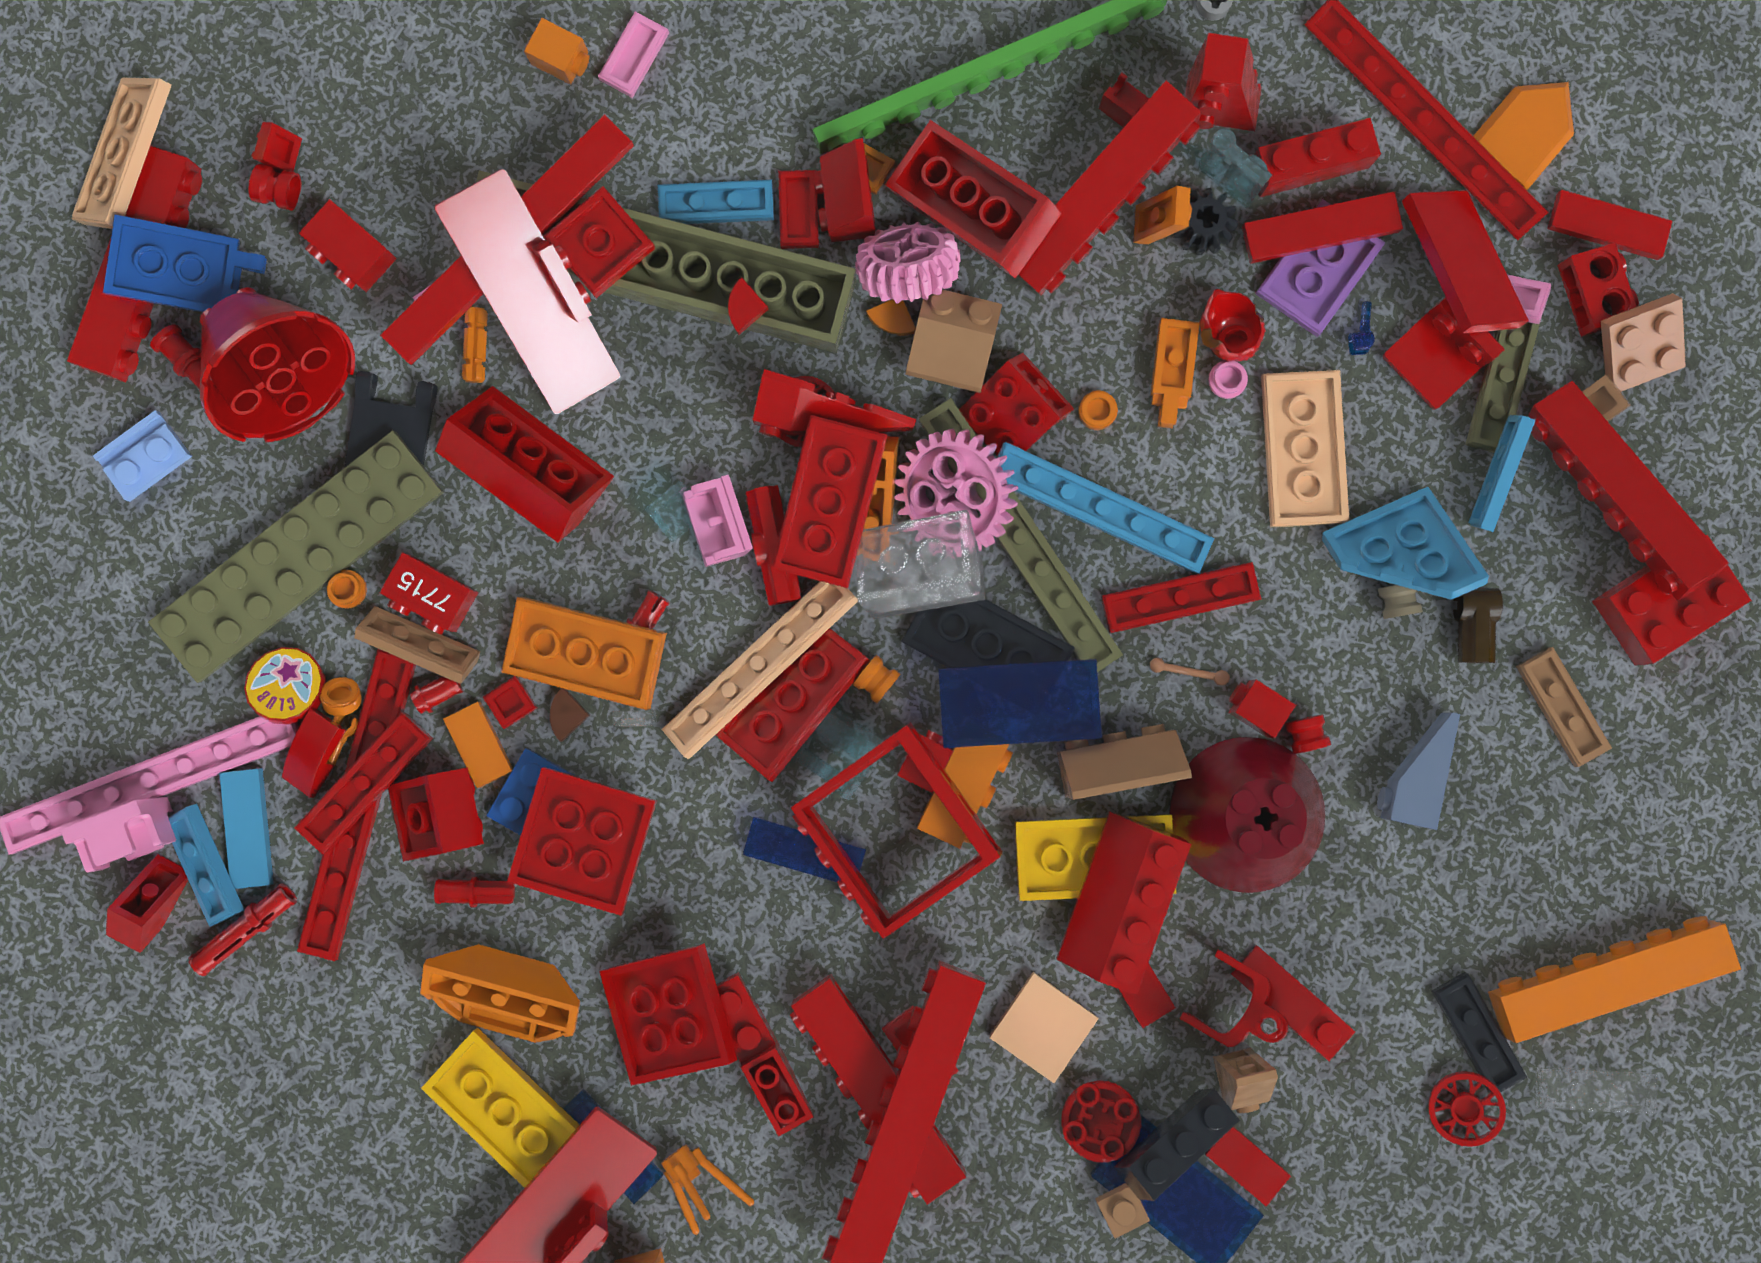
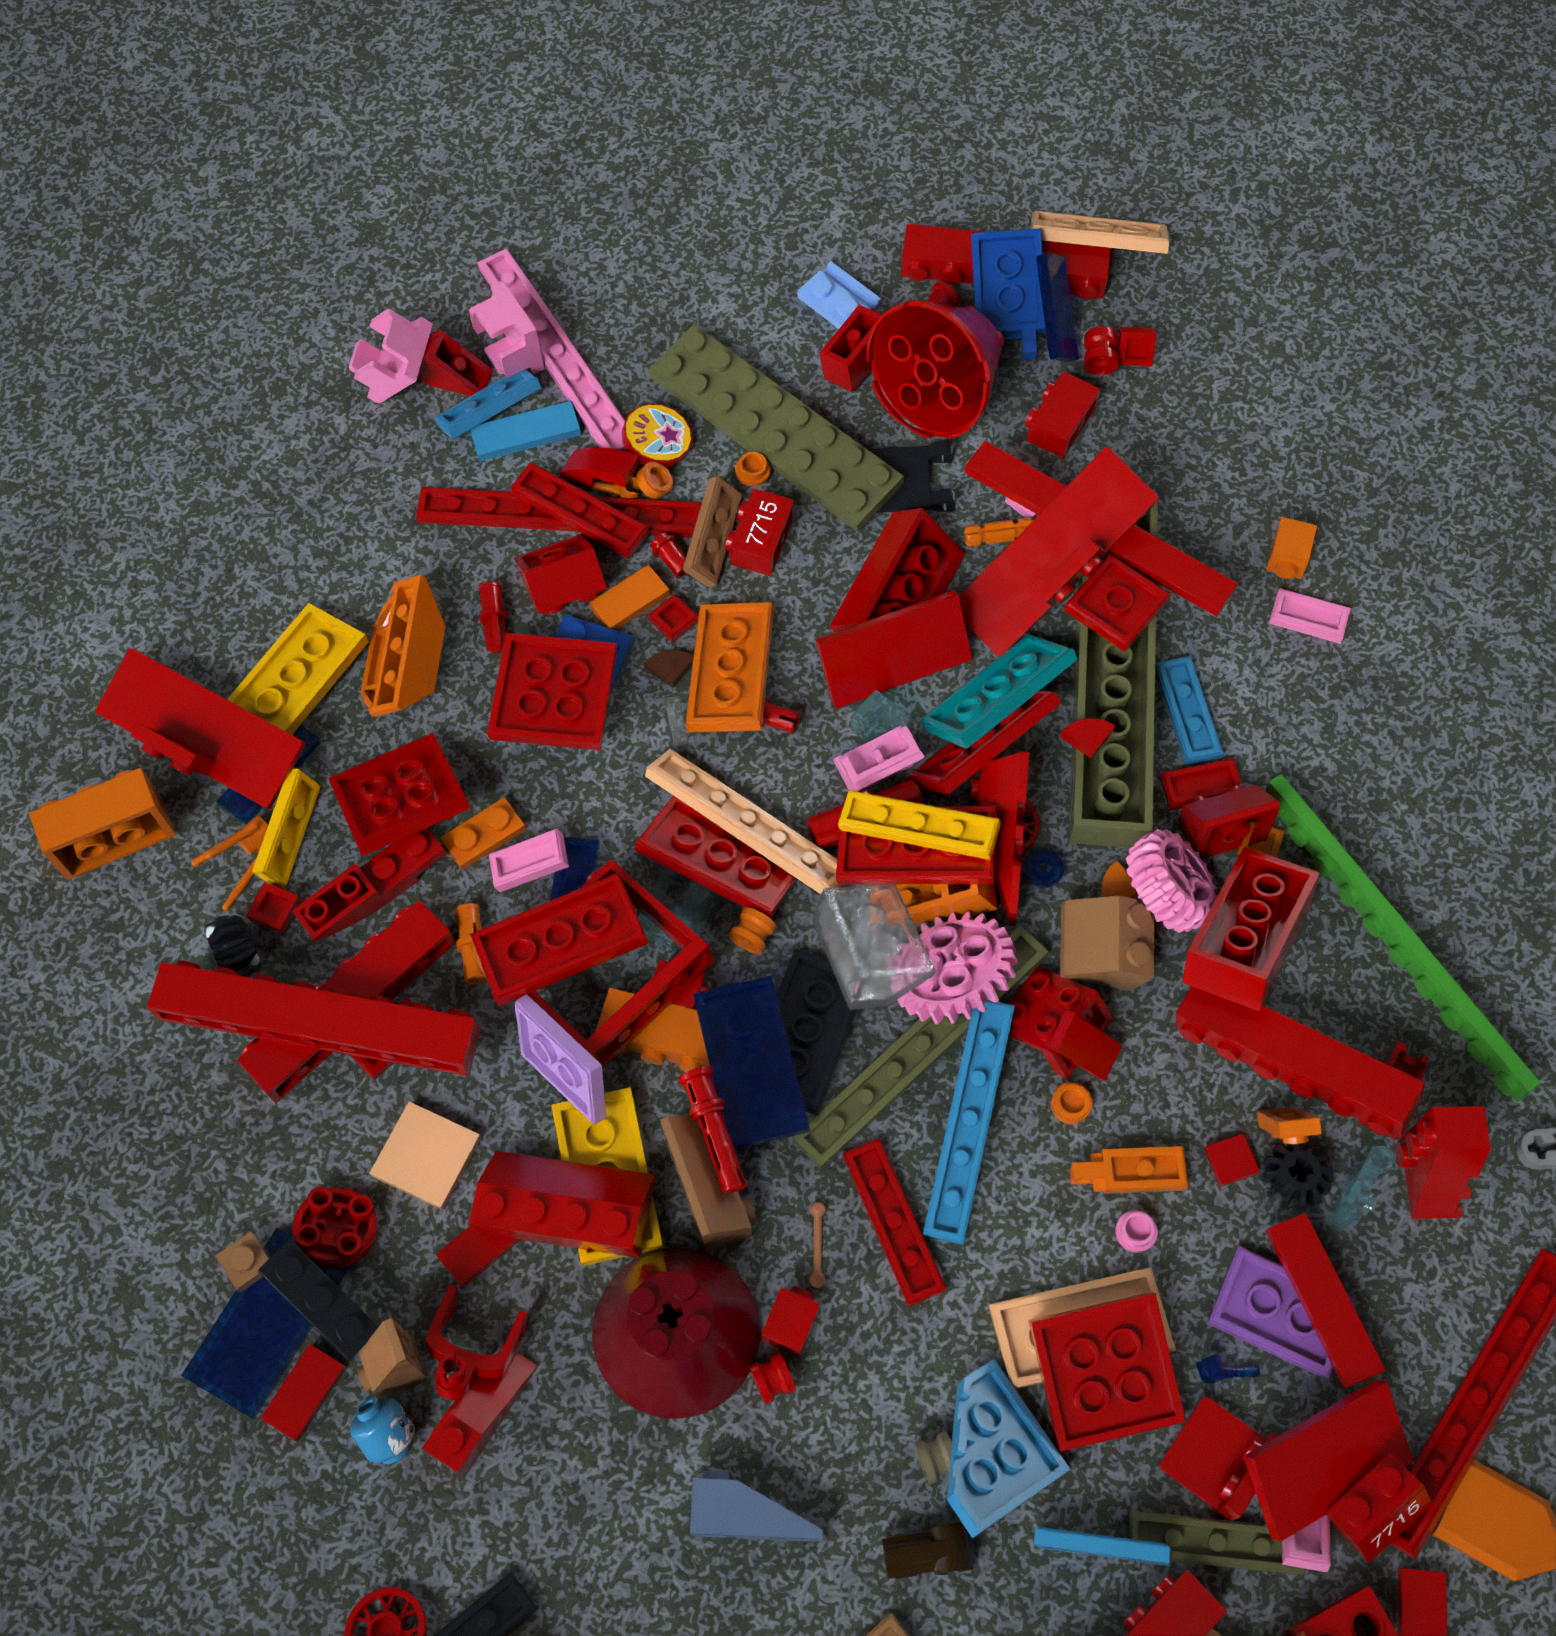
camera: 80 degrees right, 20 degrees down
(133, 961) = (399, 359): none -> bright pink panel
(215, 220) = (1057, 307): none -> clear blue tile
(227, 461) = (845, 353): none -> red brick
(256, 919) = (446, 450): red pin -> none
(600, 480) = (894, 649): none -> red tile
(665, 384) = (998, 690): none -> teal tile
(681, 1133) = (286, 829): none -> yellow tile
(719, 932) = (483, 833): none -> orange plate
(720, 411) = (956, 764): none -> red tile
(761, 890) = (528, 860): none -> bright pink tile
(764, 1153) = (273, 908): none -> red plate
(805, 1199) = (232, 945): none -> black gear
(814, 494) = (919, 824): none -> yellow tile
(837, 957) = (469, 922): none -> orange pin
(864, 394) = (1040, 878): none -> clear blue plate
(870, 871) = (558, 939): none -> red tile
(987, 886) = (560, 1059): none -> lavender tile
(1055, 385) = (1085, 1045): none -> red tile
(1067, 752) = (708, 1112): none -> red pin
(1177, 277) = (1231, 1160): none -> red tile
(1231, 326) = (1192, 1218): red hair -> none
(1300, 1095) = (382, 1430): none -> dark azure head
(1319, 156) = (1398, 1279): red brick -> none
(1353, 434) = (1106, 1371): none -> red plate
(1509, 230) = (1379, 1508): none -> red brick

